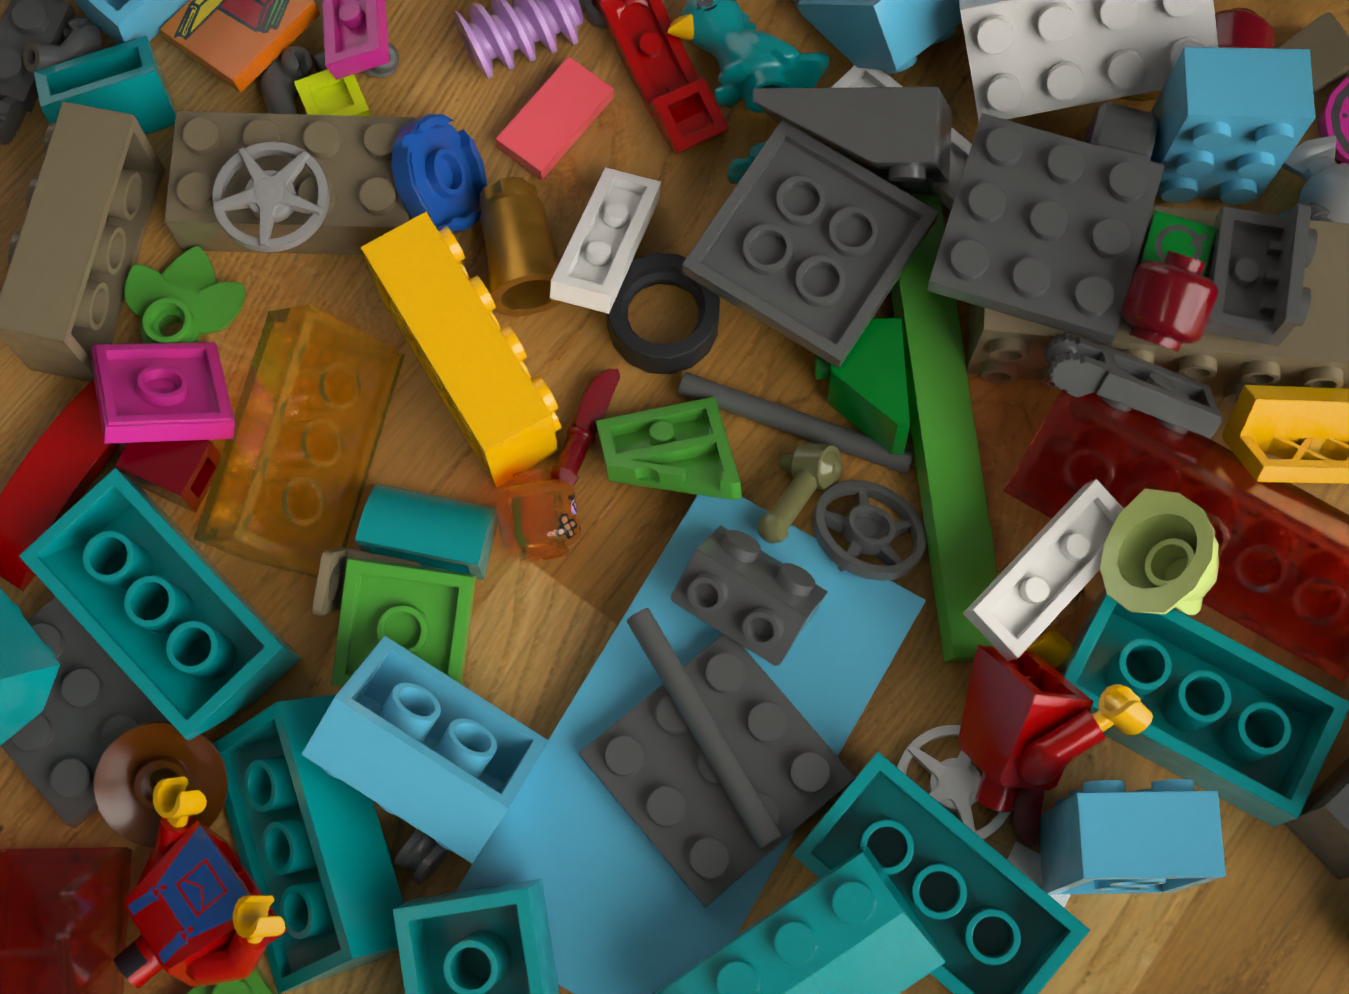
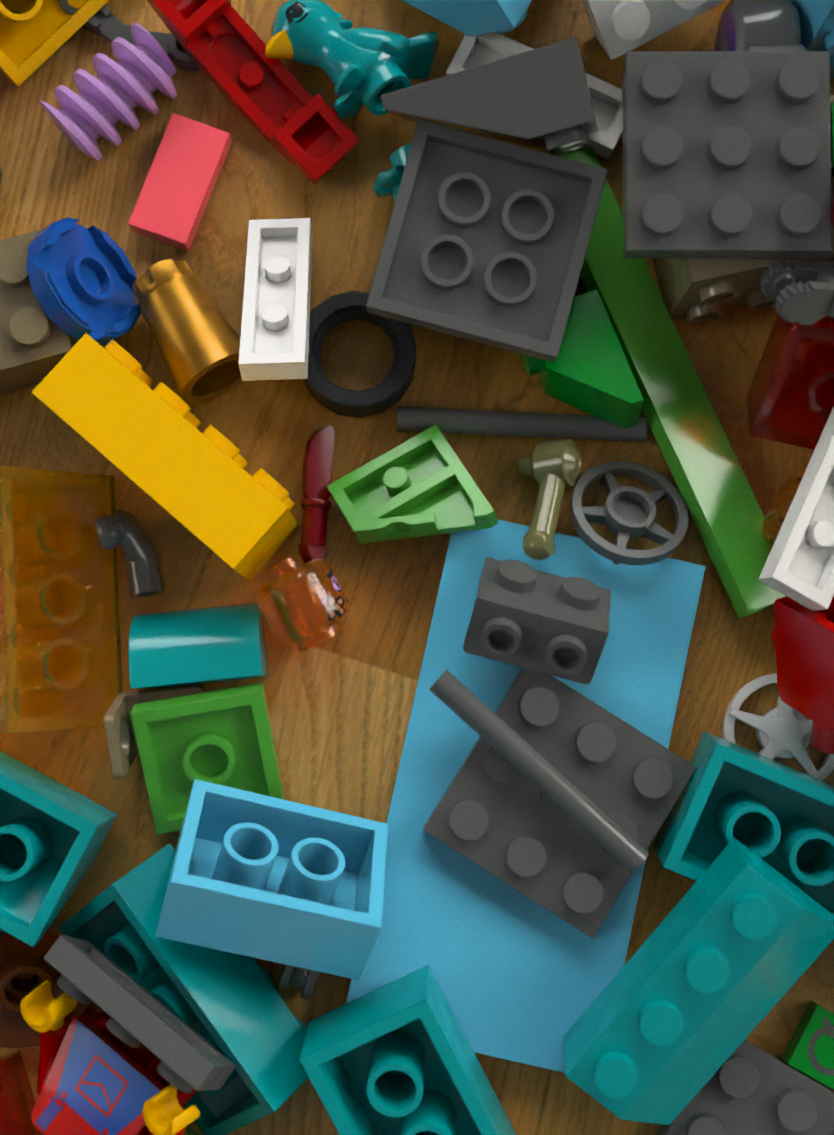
camera: 20 degrees left, 10 degrees up
(257, 830) = (138, 1016): none -> dark grey plate
(403, 428) = (137, 550): none -> dark grey arm

